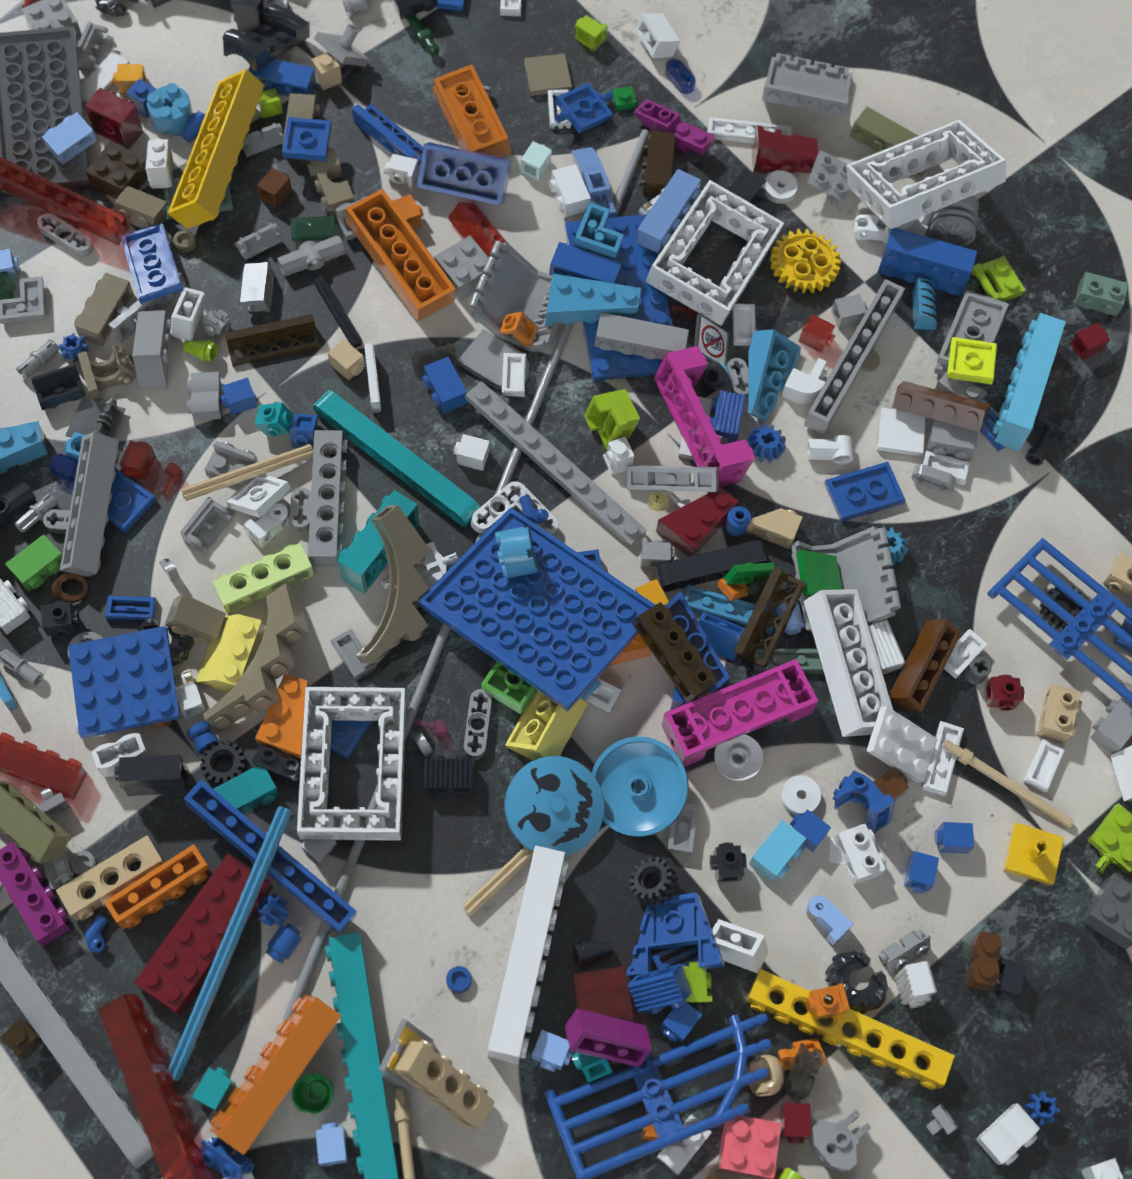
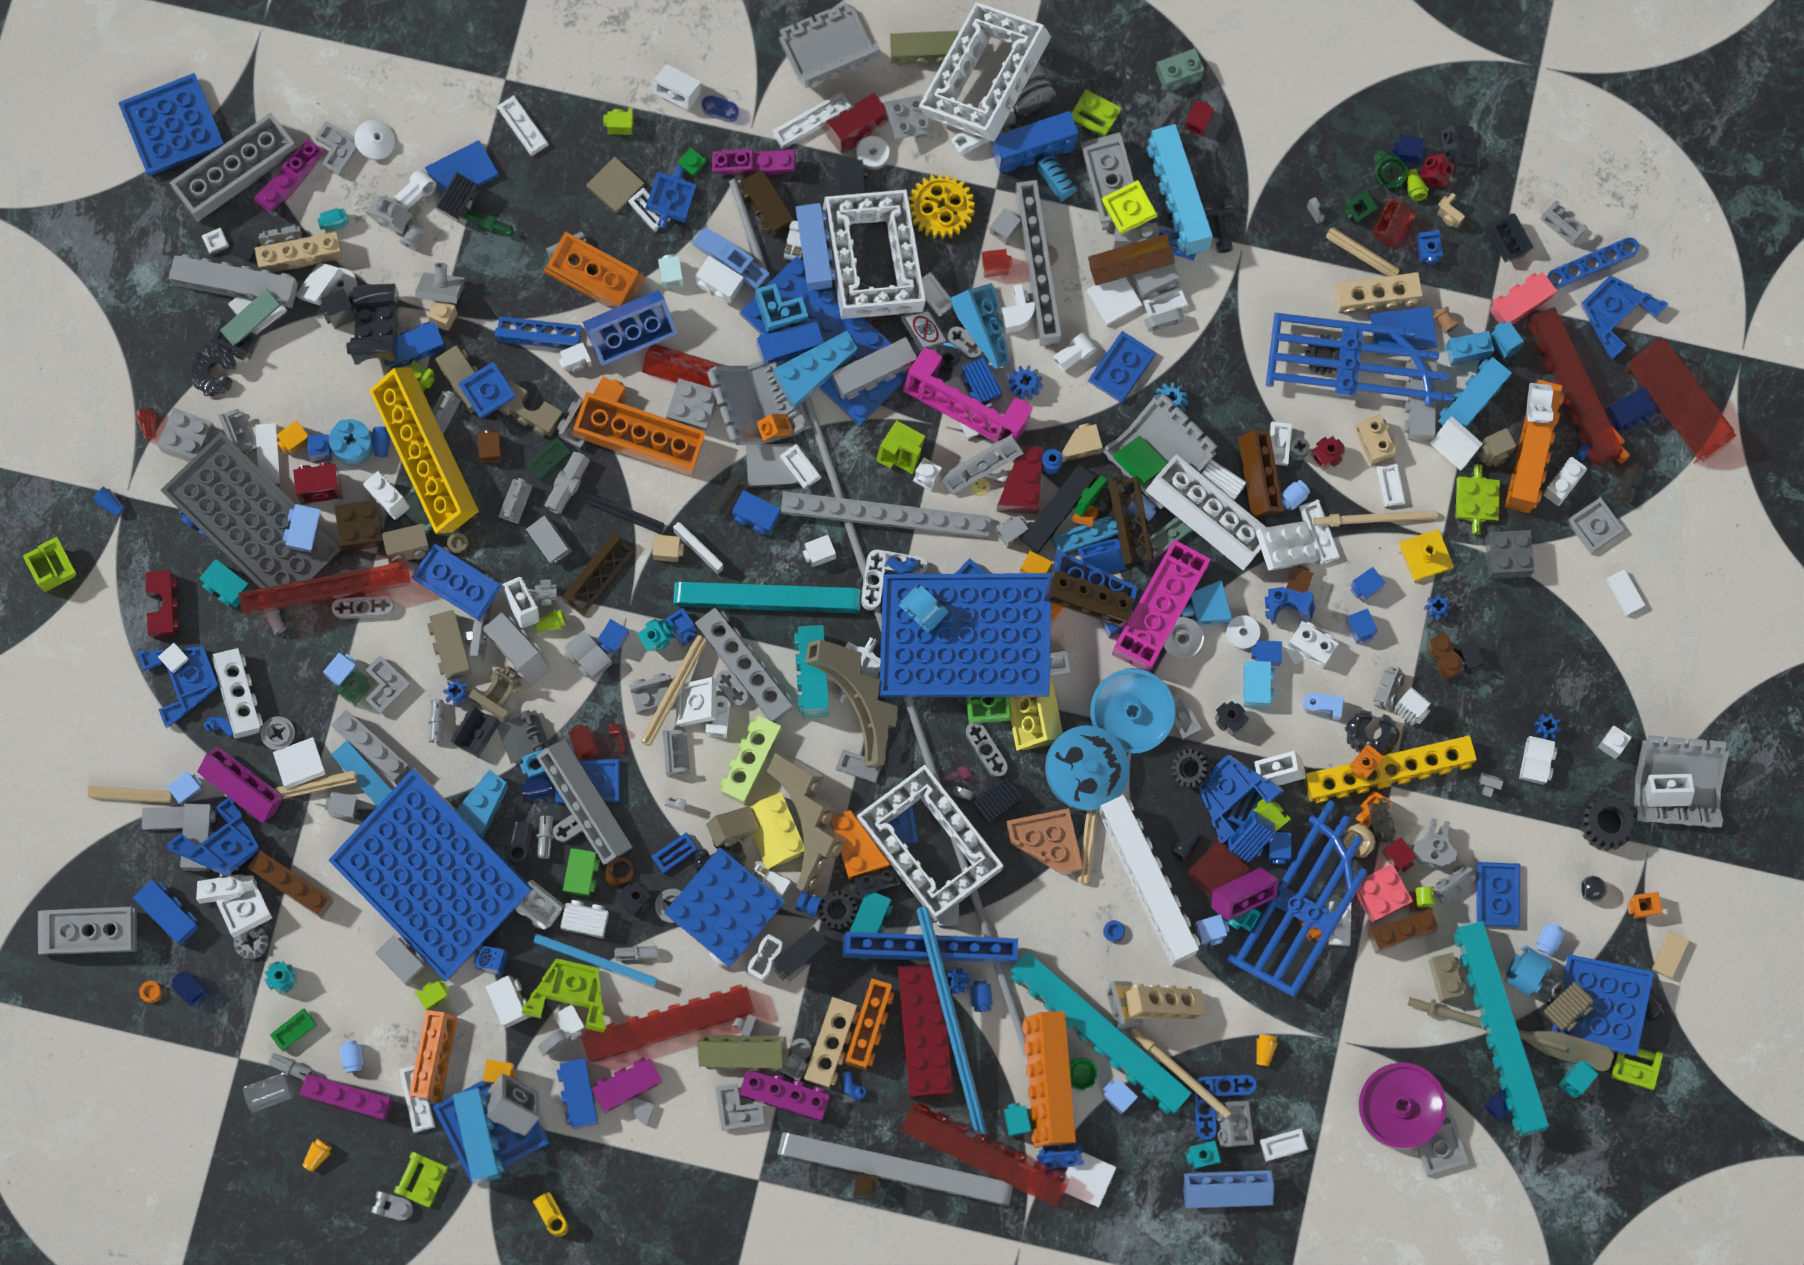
camera: 35 degrees left, 10 degrees up
(466, 846) = (1048, 839): none -> nougat plate
(785, 746) = (1208, 605): none -> dark azure torso
(942, 707) = (1294, 495): none -> light blue brick
(1016, 909) = (1441, 604): none -> blue gear

